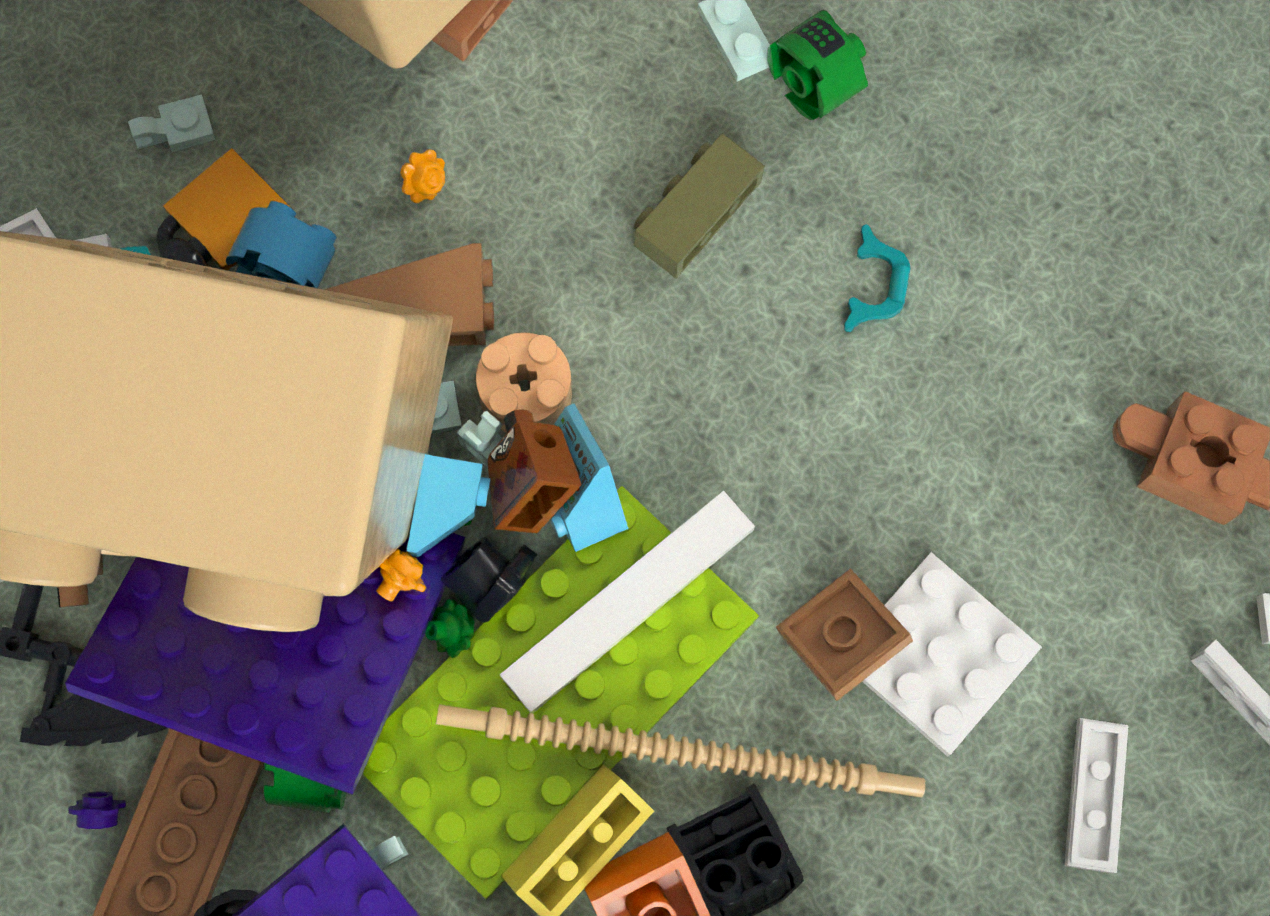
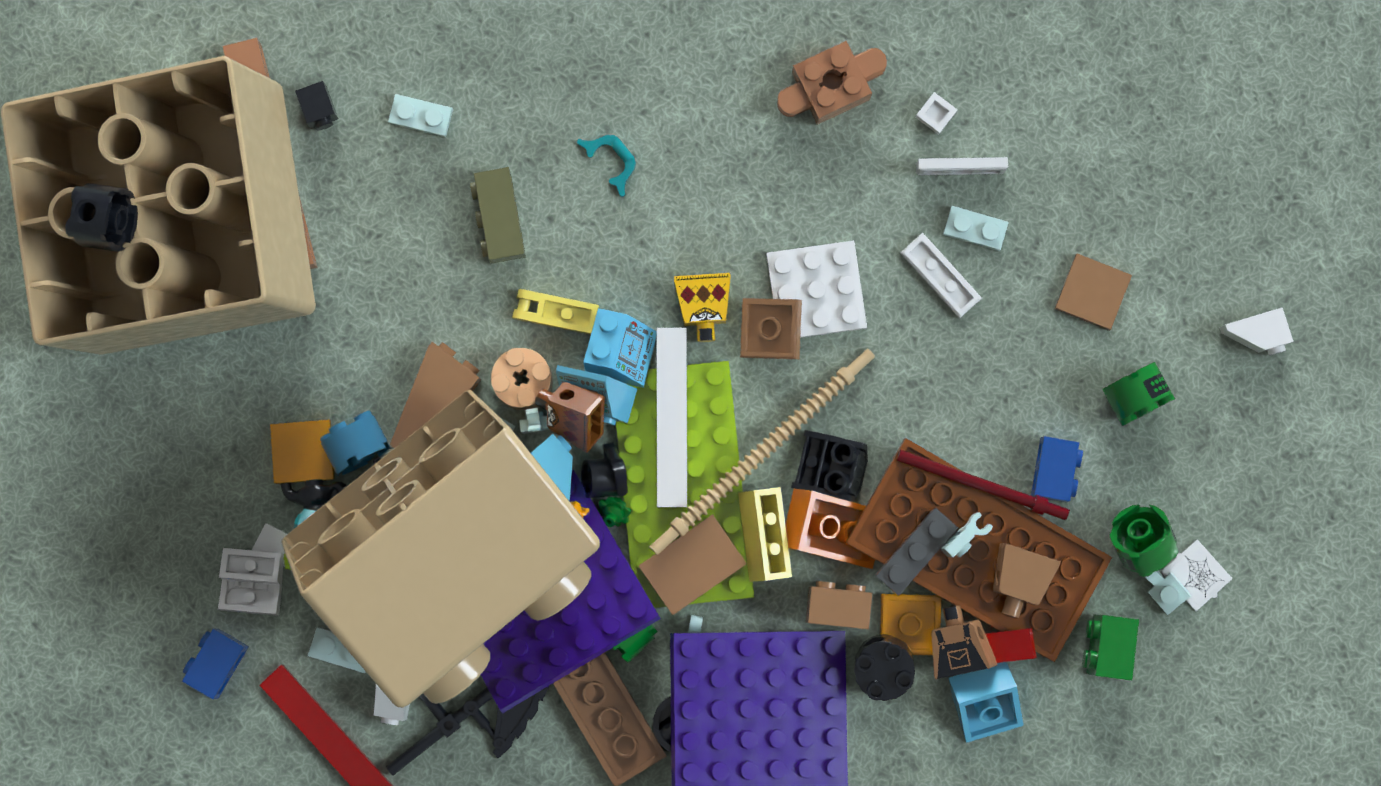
camera: 45 degrees left, 10 degrees up
(96, 810) = (563, 745): dark purple plate -> none
(181, 124) = (234, 439): light aqua plate -> none
(423, 176) = (367, 340): light orange plant -> none
(462, 782) = (692, 564): none -> medium nougat tile
(642, 363) = (556, 311): none -> light yellow plate
(661, 467) = (620, 348): none -> medium azure slope
(805, 524) = (703, 302): none -> yellow torso
(818, 65) = (477, 93): green brick -> none
(1194, 789) = (975, 228): none -> light aqua plate

